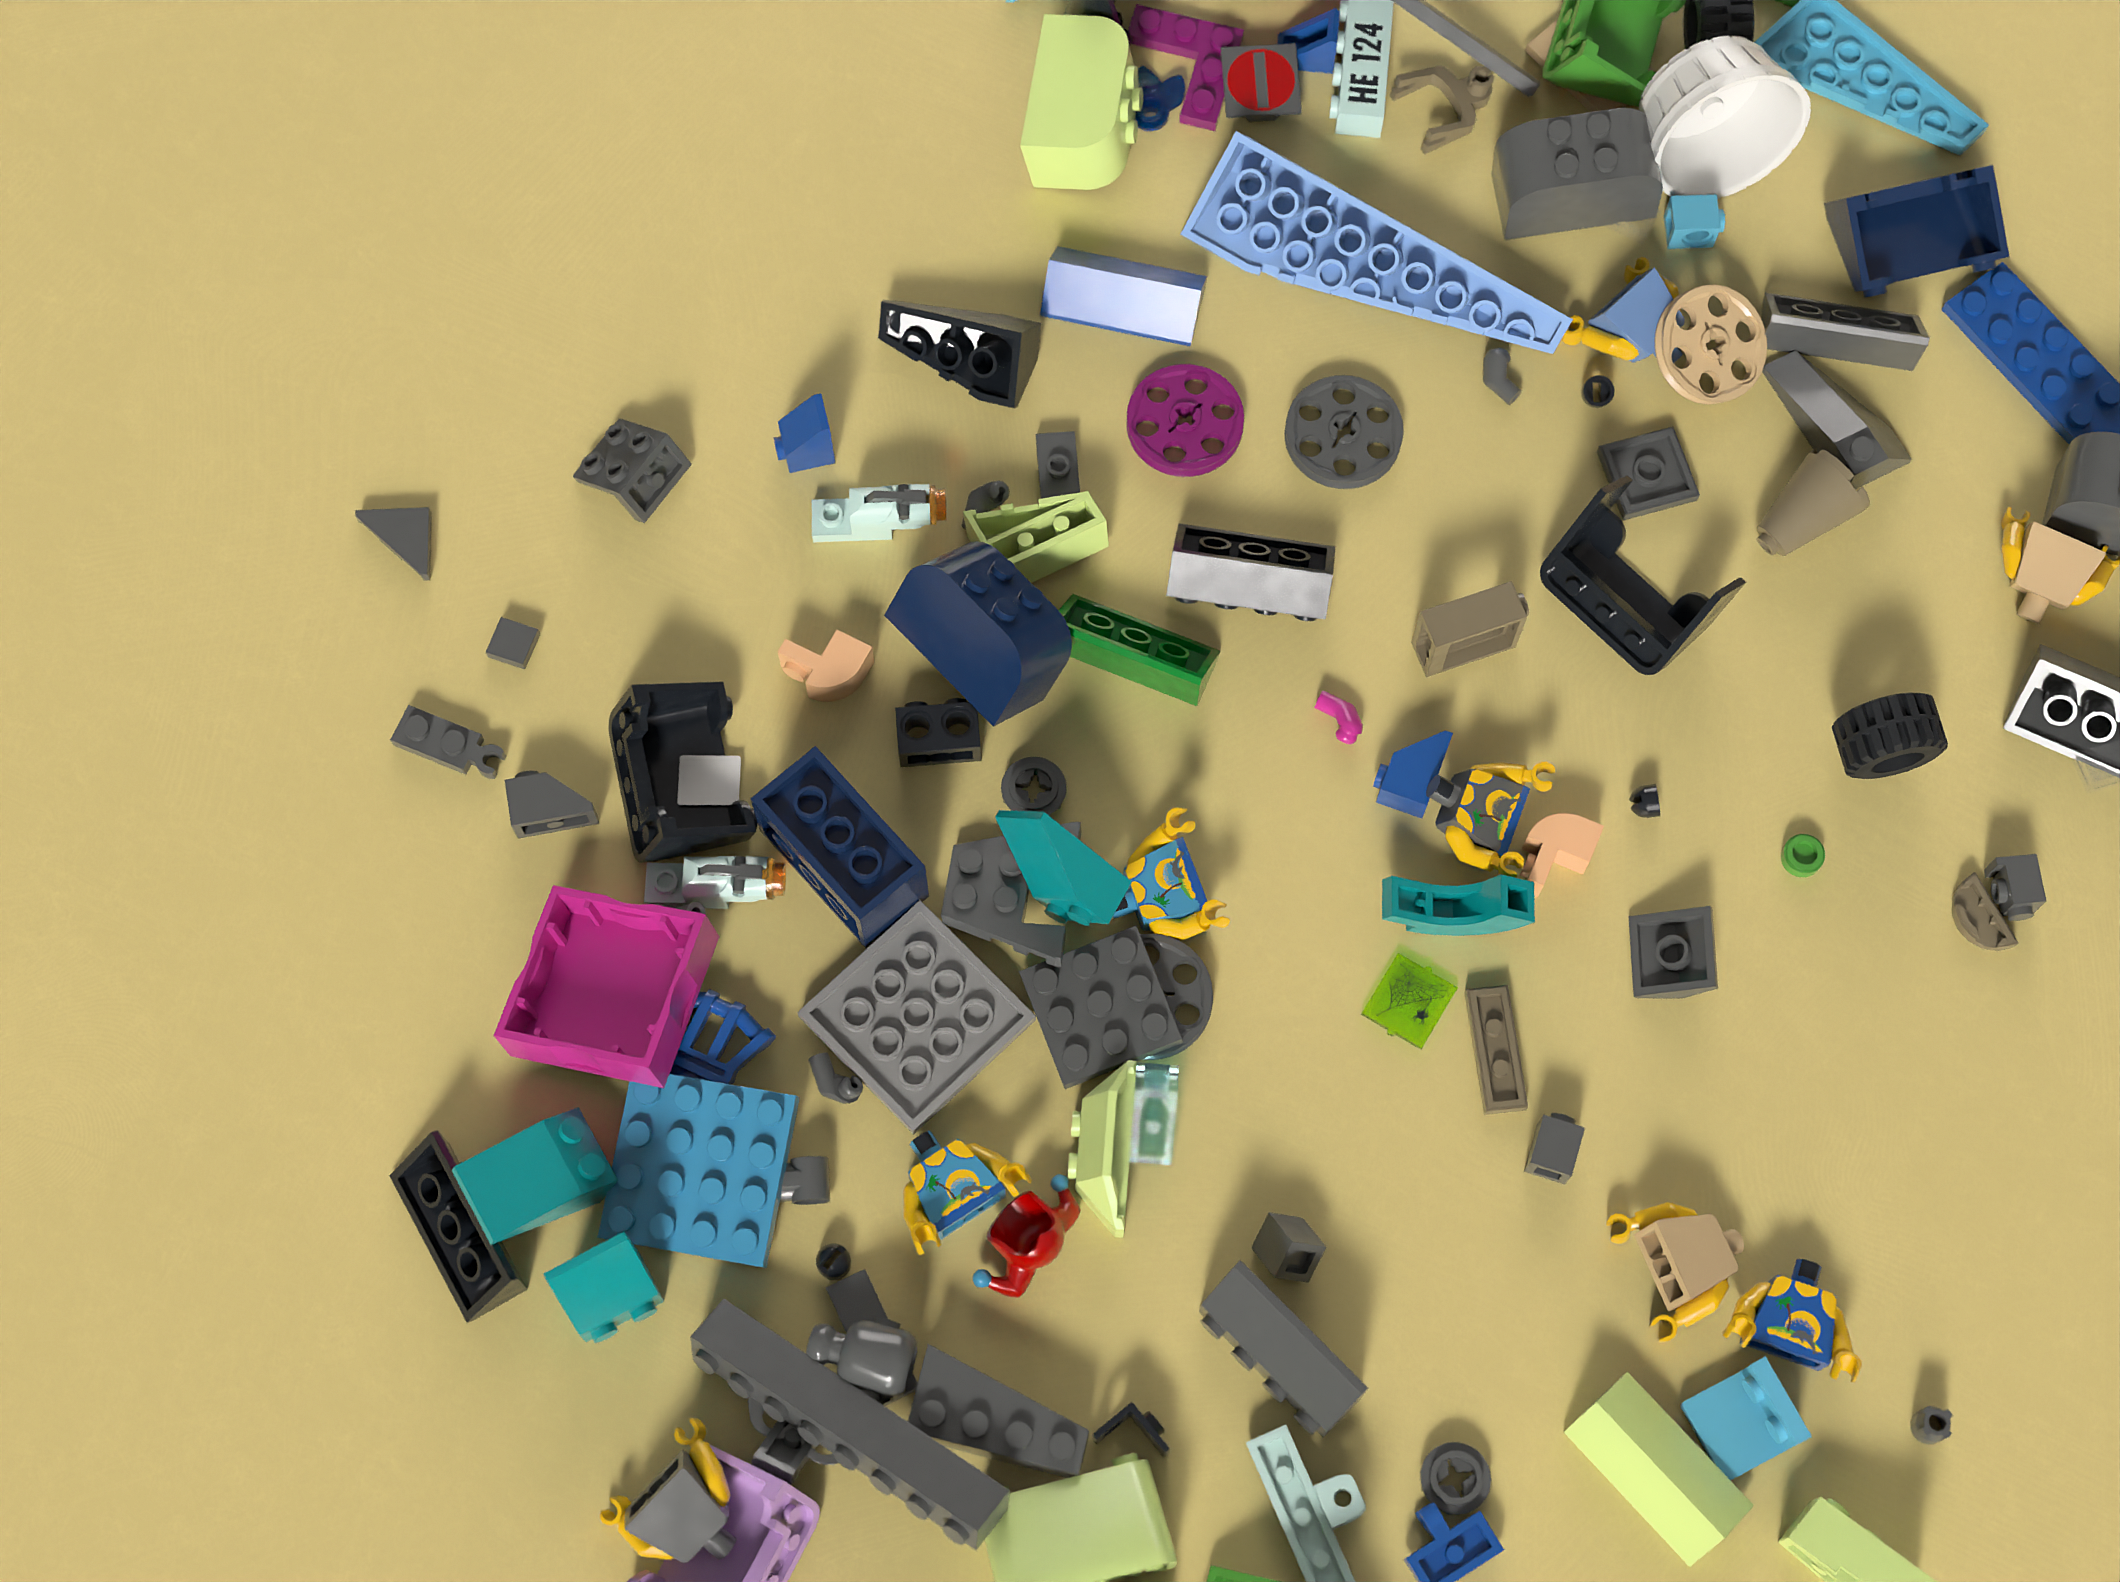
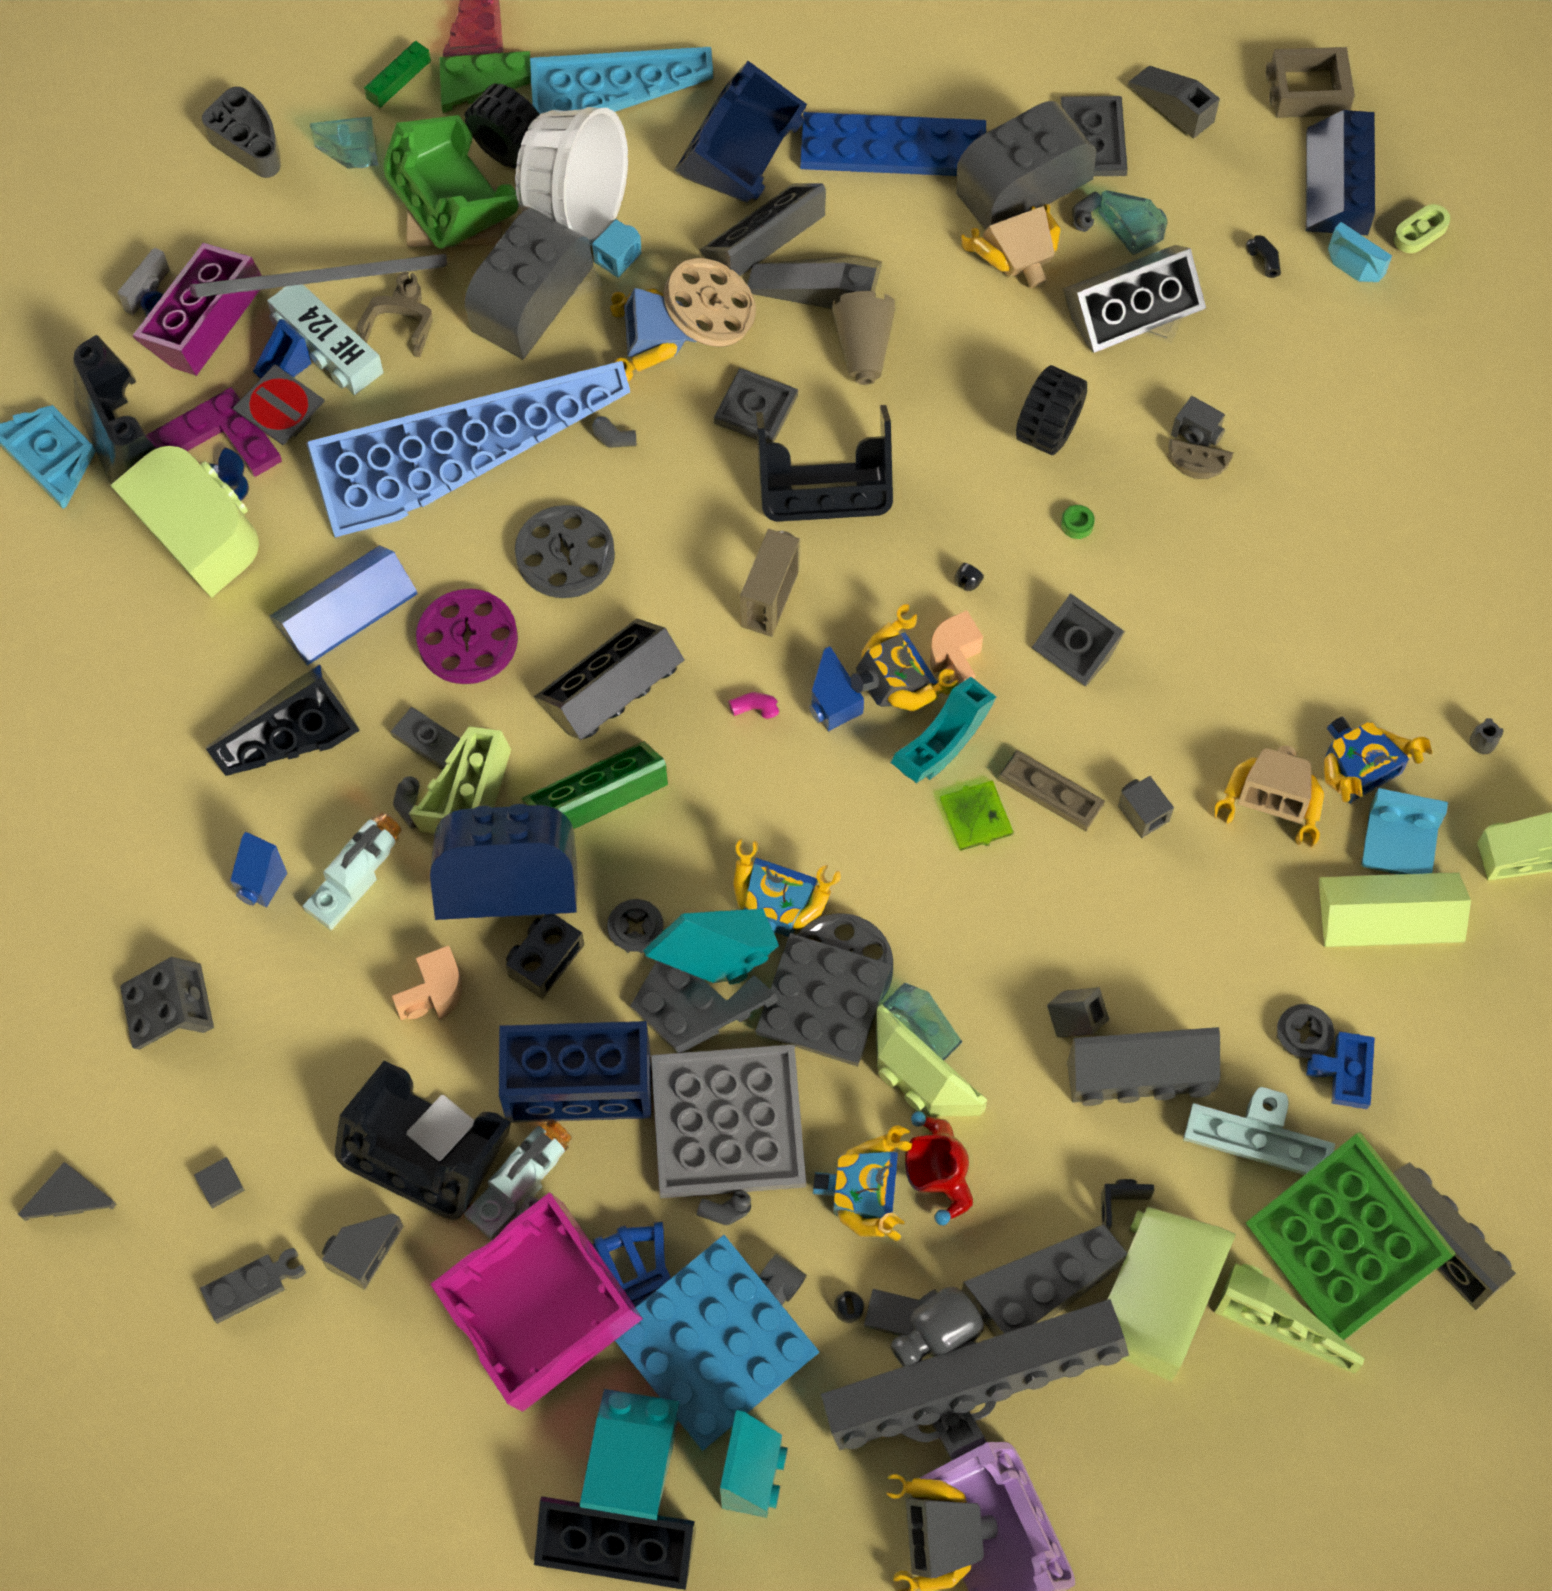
camera: 50 degrees left, 5 degrees down
(1605, 391) = (681, 385): black hinge -> none

